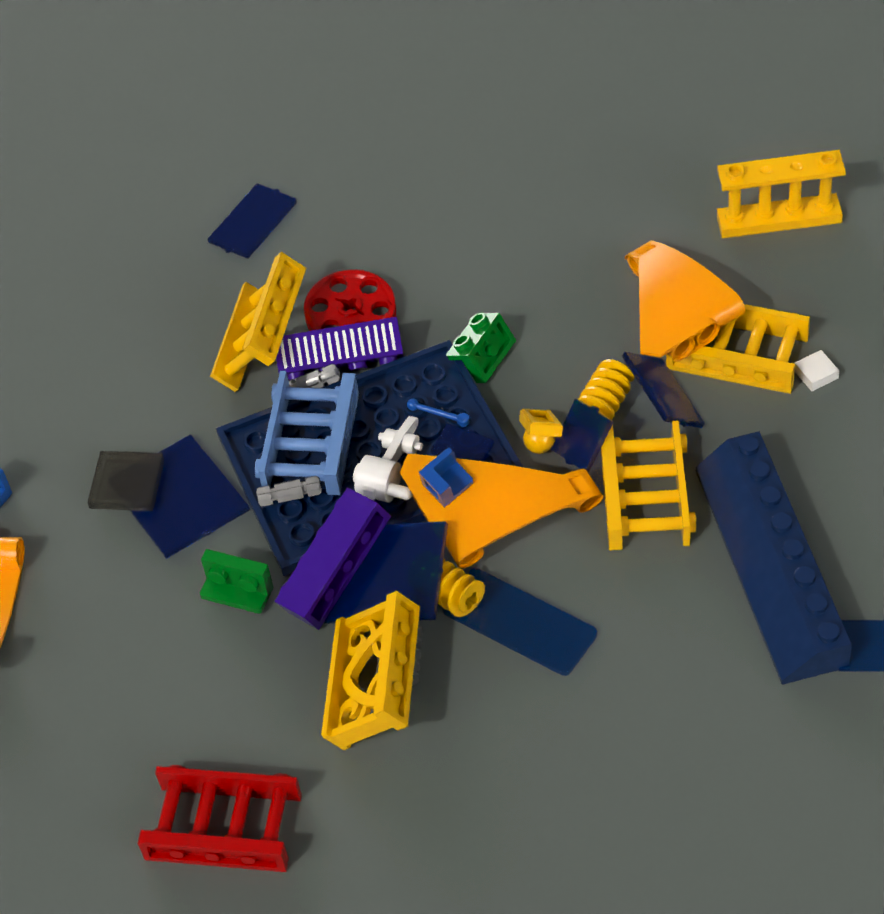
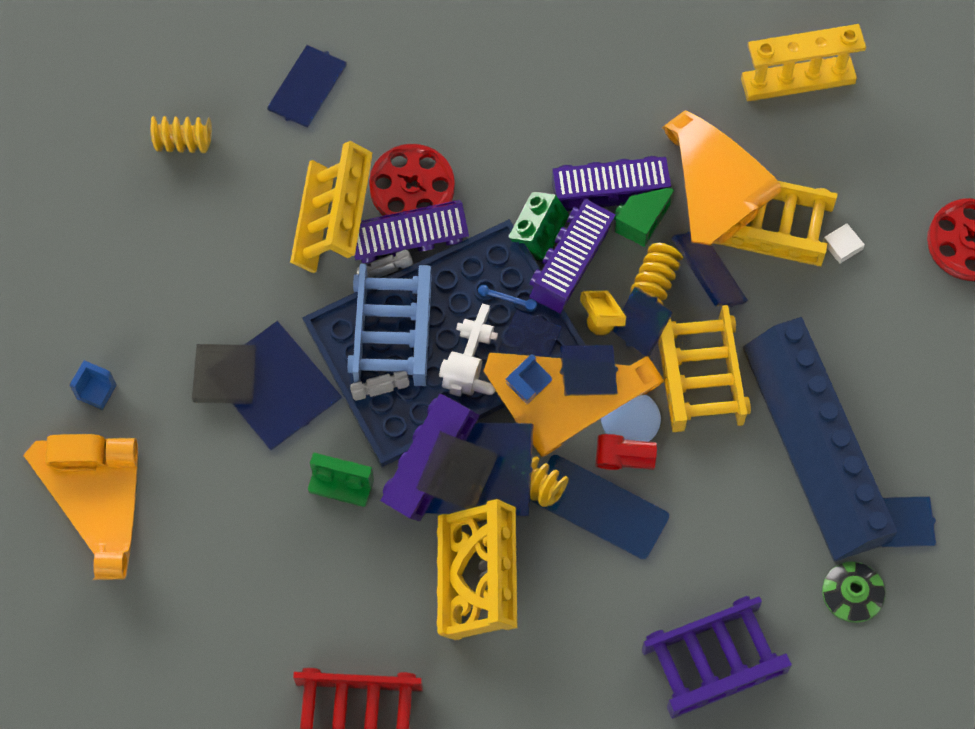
camera: 10 degrees left, 15 degrees up
(113, 261) = (180, 136): none -> yellow piece
(358, 567) = (456, 471): none -> clear smoke tile
(511, 372) = (571, 256): none -> dark purple brick
(515, 474) = (588, 370): none -> clear blue piece
(543, 564) = (615, 453): none -> red piece
(564, 536) = (634, 420): none -> light blue piece
(565, 309) = (609, 182): none -> dark purple brick
(596, 337) = (642, 215): none -> green slope
(637, 805) = (740, 676): none -> dark purple fence
(802, 727) = (846, 603): none -> dish

